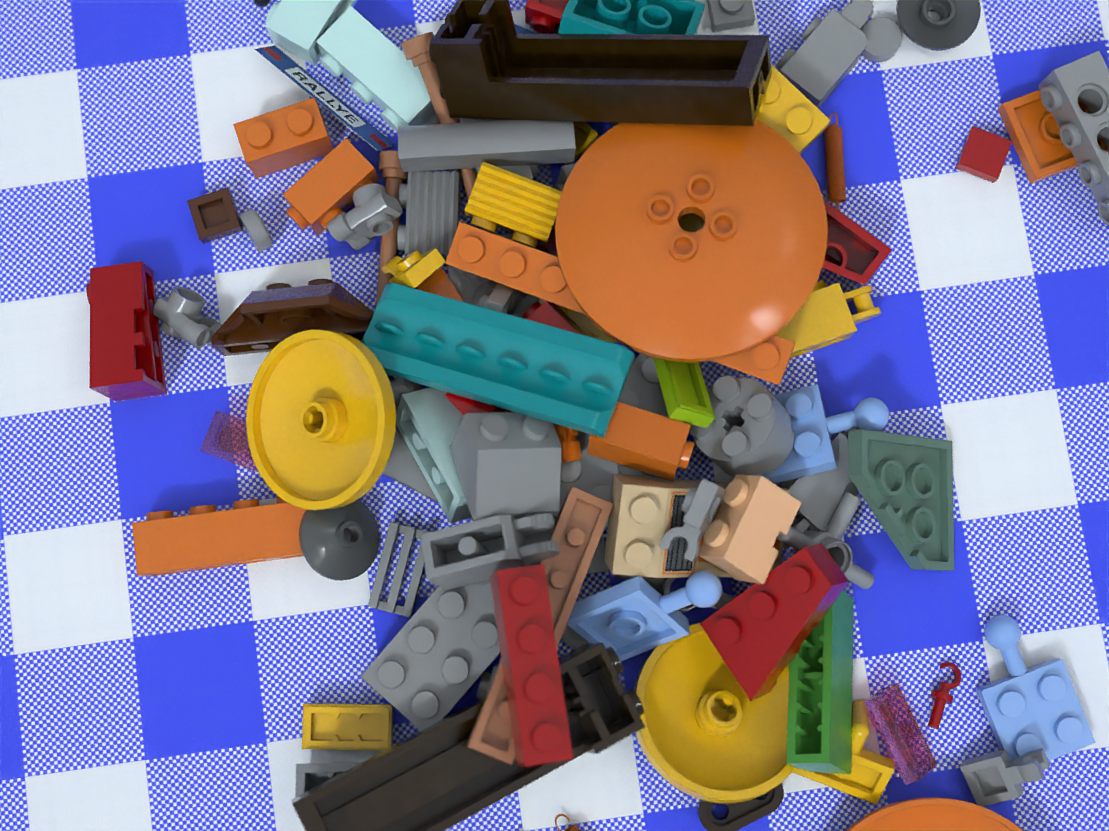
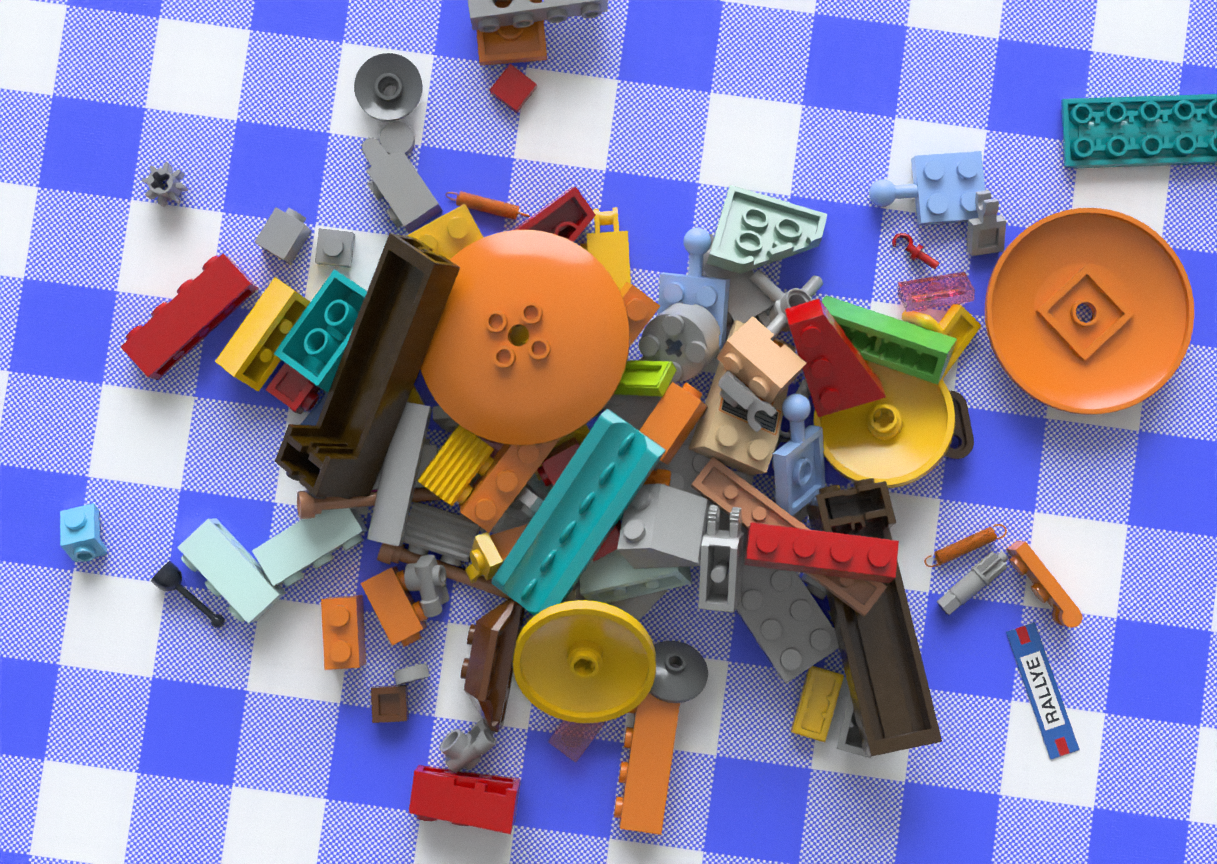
camera: 75 degrees left, 5 degrees up
(325, 97) = (317, 591): sticker -> none
(382, 571) = (735, 646): light grey tile -> none

